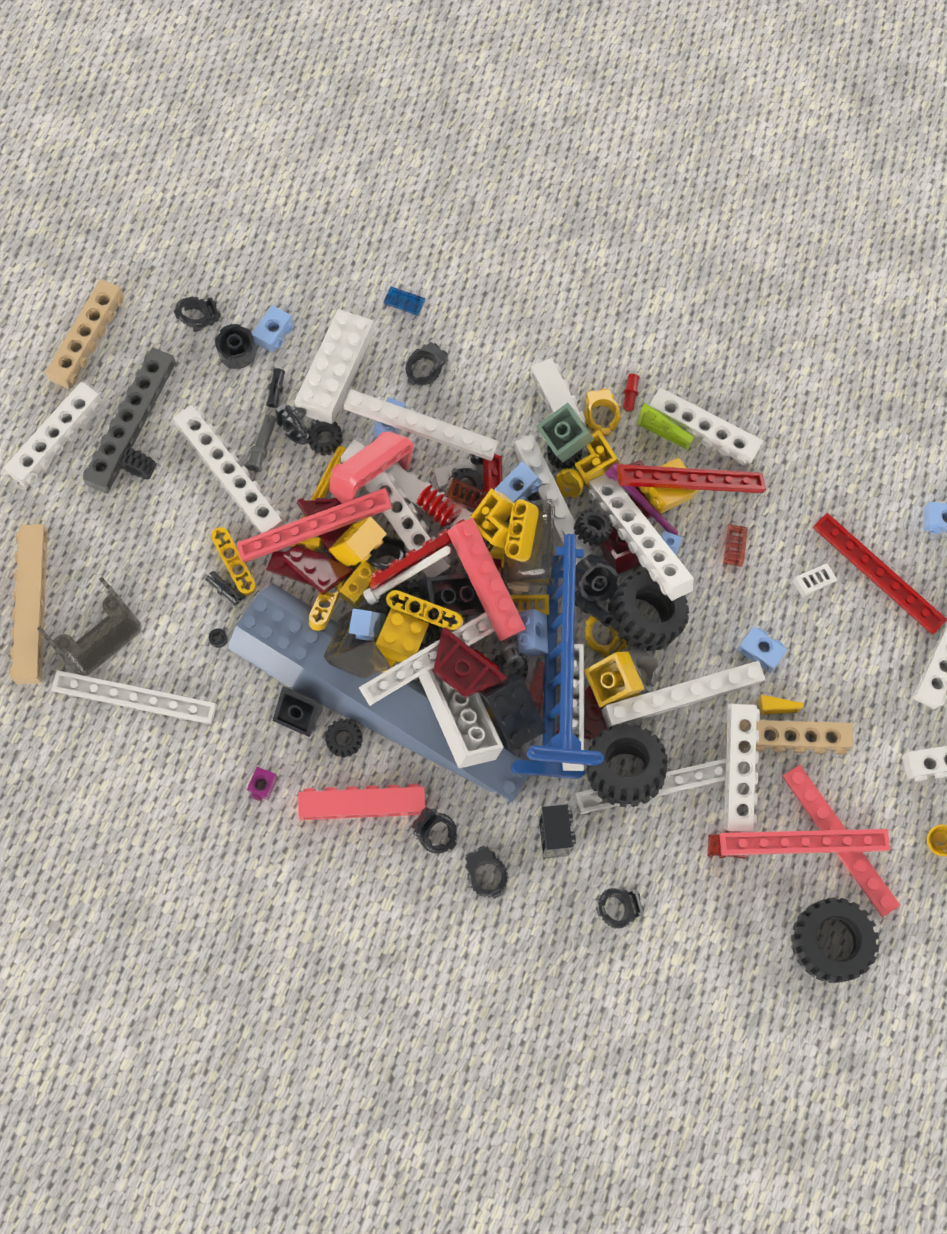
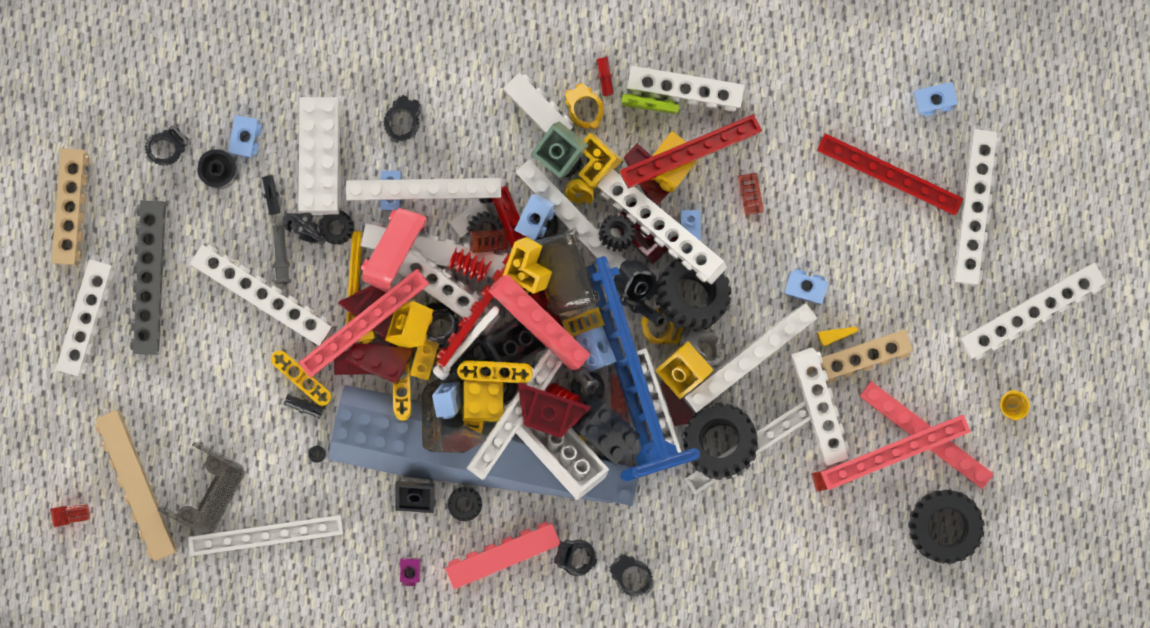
camera: 15 degrees left, 15 degrees up
(137, 463) = (176, 320): black tyre -> none
(404, 301) = (357, 59): clear blue tile -> none
(525, 522) = (553, 279): yellow beam -> none
(555, 831) = (679, 523): black brick -> none
(612, 474) = (655, 189): magenta piece -> none
(624, 897) = (765, 565): black piece -> none
(804, 590) = (822, 212): white slope -> none

